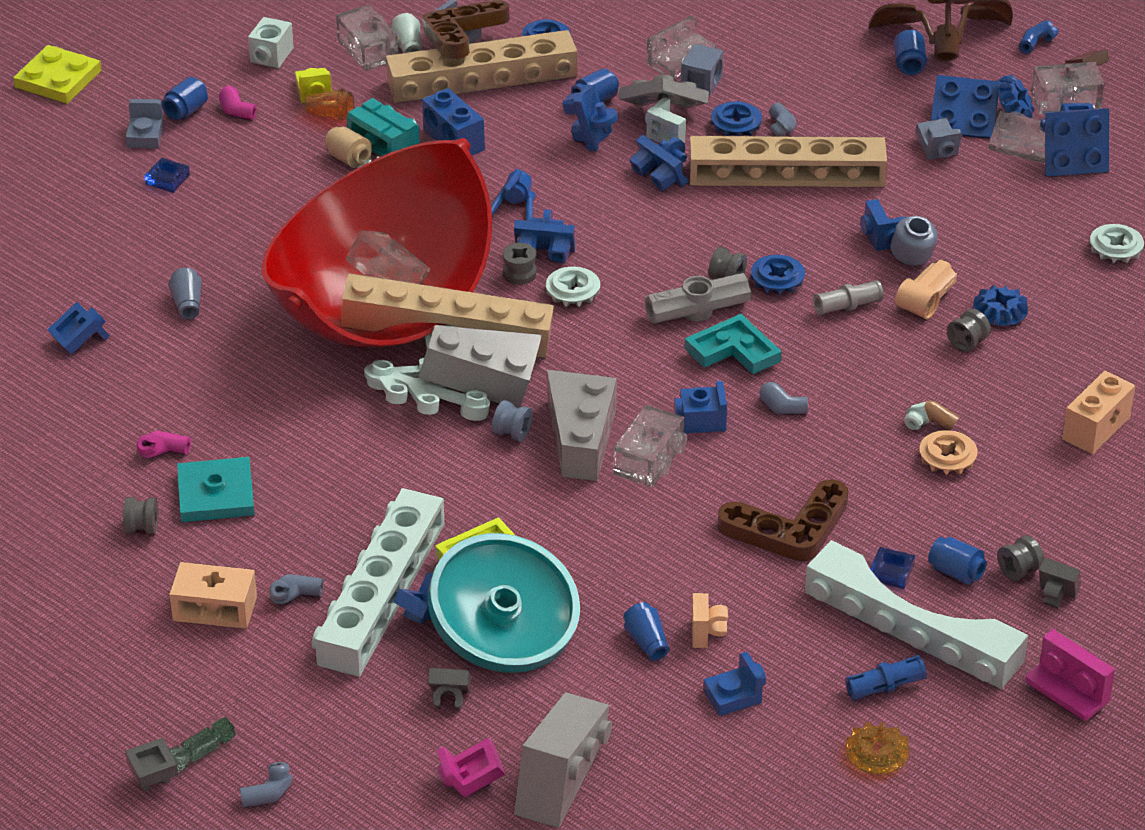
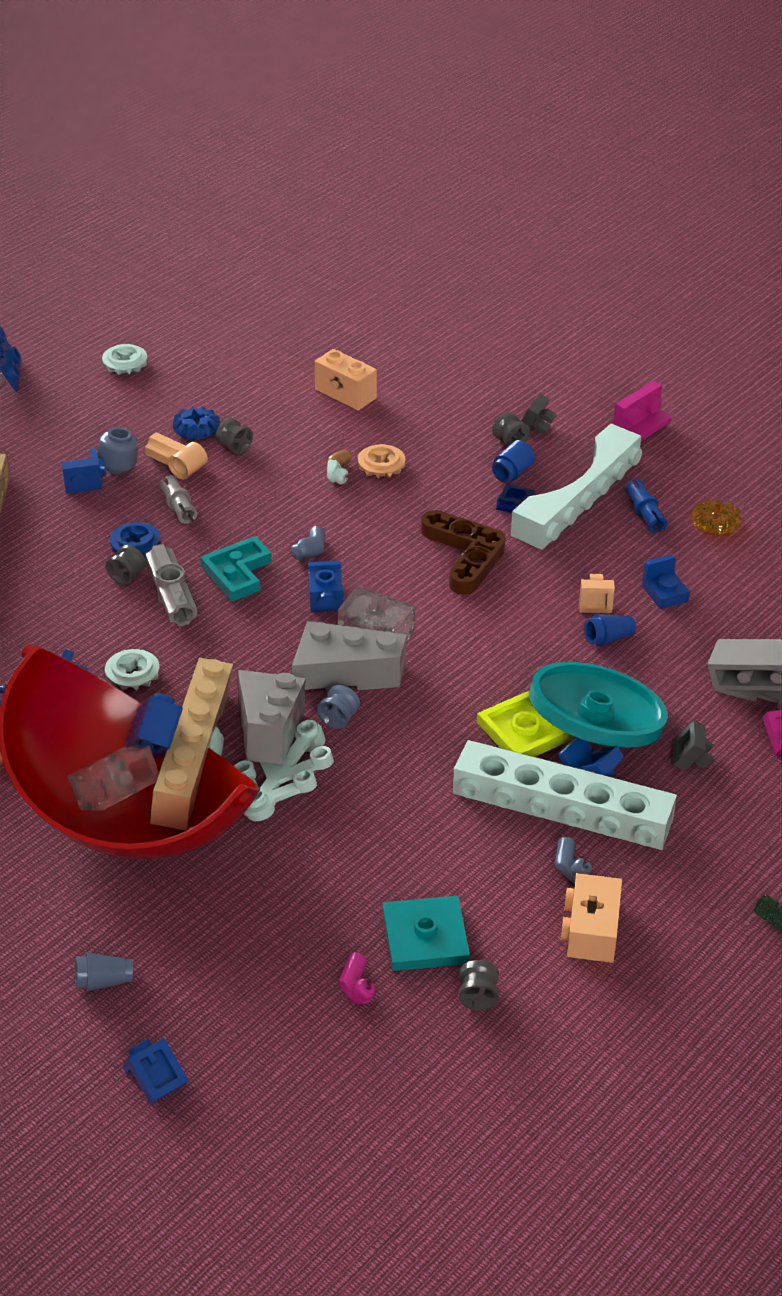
camera: 90 degrees left, 0 degrees up
(431, 265) = (155, 724): none -> blue brick

